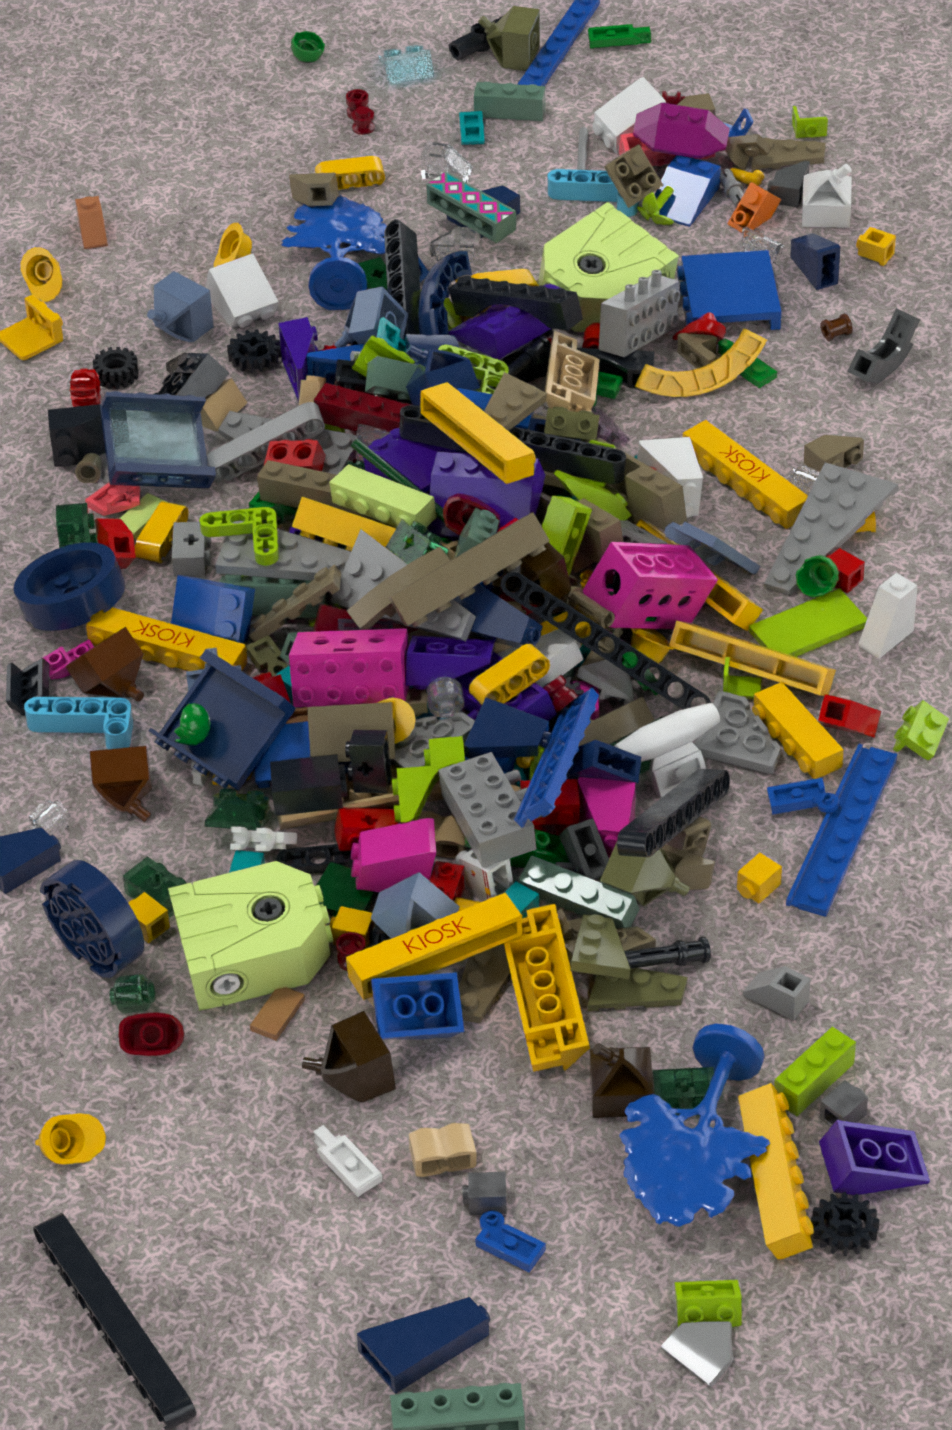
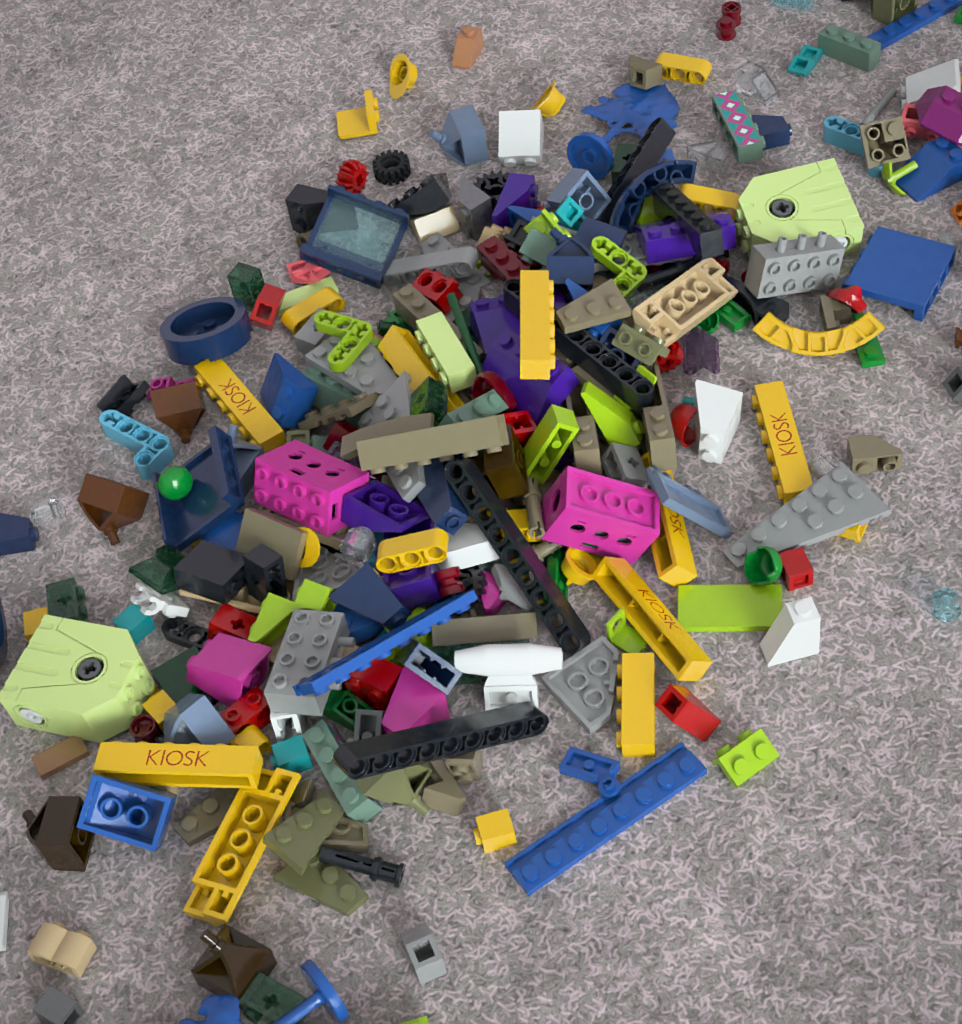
camera: 40 degrees right, 5 degrees up
(257, 374) = (474, 209): none -> flat silver slope

